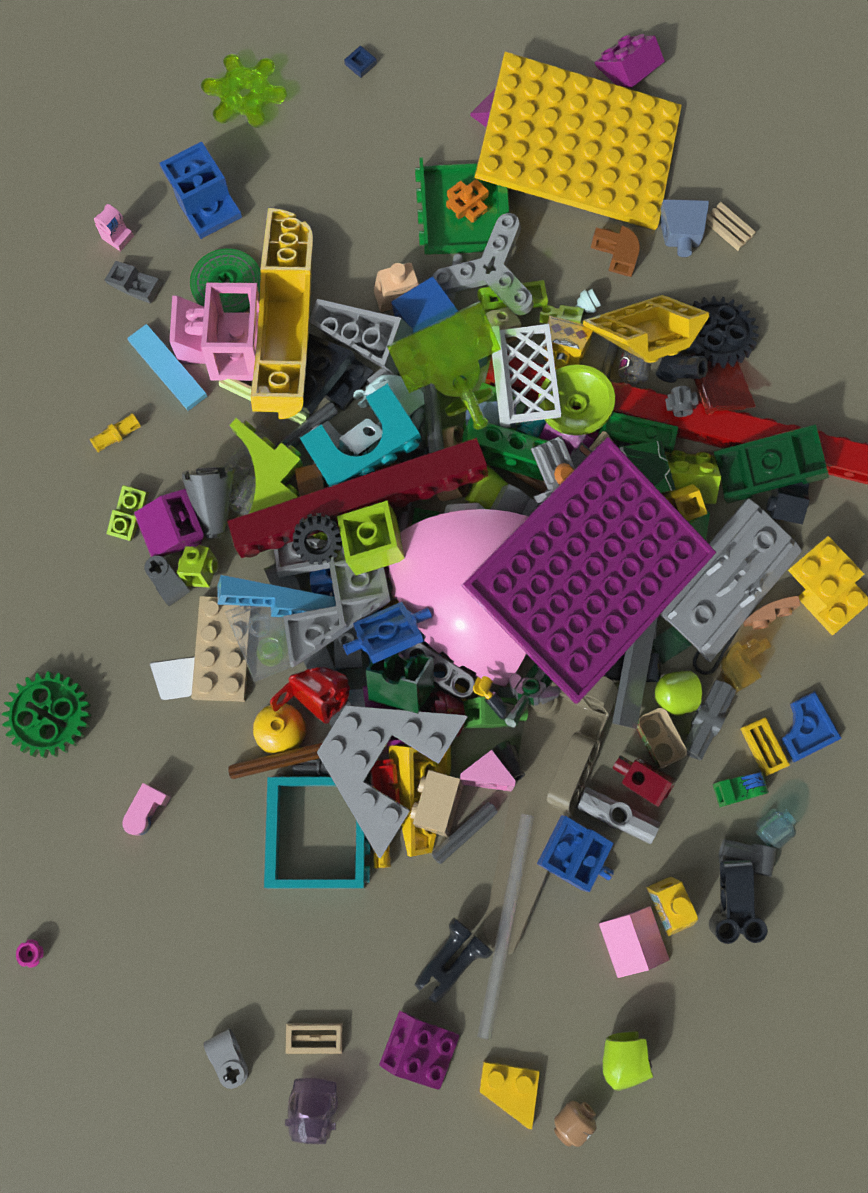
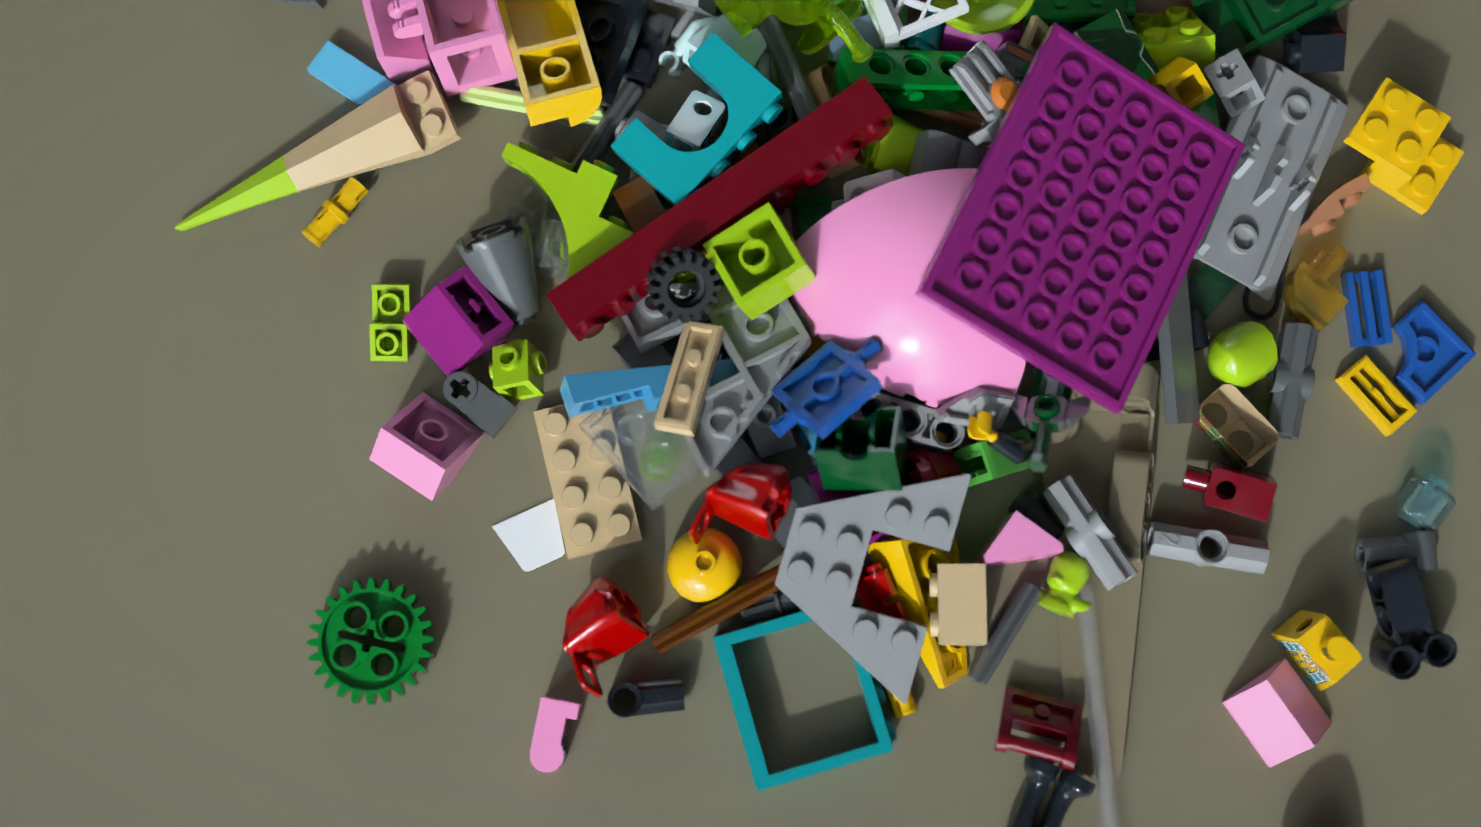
camera: 15 degrees left, 5 degrees up
(123, 598) = (425, 445): none -> bright pink slope
(162, 390) = (384, 131): none -> tan plate
(196, 750) = (600, 628): none -> red piece
(215, 804) = (651, 696): none -> black piece
(302, 600) = (689, 378): none -> tan tile
(469, 895) = (1041, 717): none -> dark red plate
(497, 673) = (973, 401): none -> light grey tile
(514, 808) = (1066, 579): none -> lime animal
(539, 781) = (1090, 532): none -> light grey piece
(576, 854) = (1168, 618): blue plate -> none
(724, 506) = (1231, 76): none -> light grey brick
(740, 789) = (1360, 464): green leg -> none
(778, 665) = (1380, 306): none -> blue tile

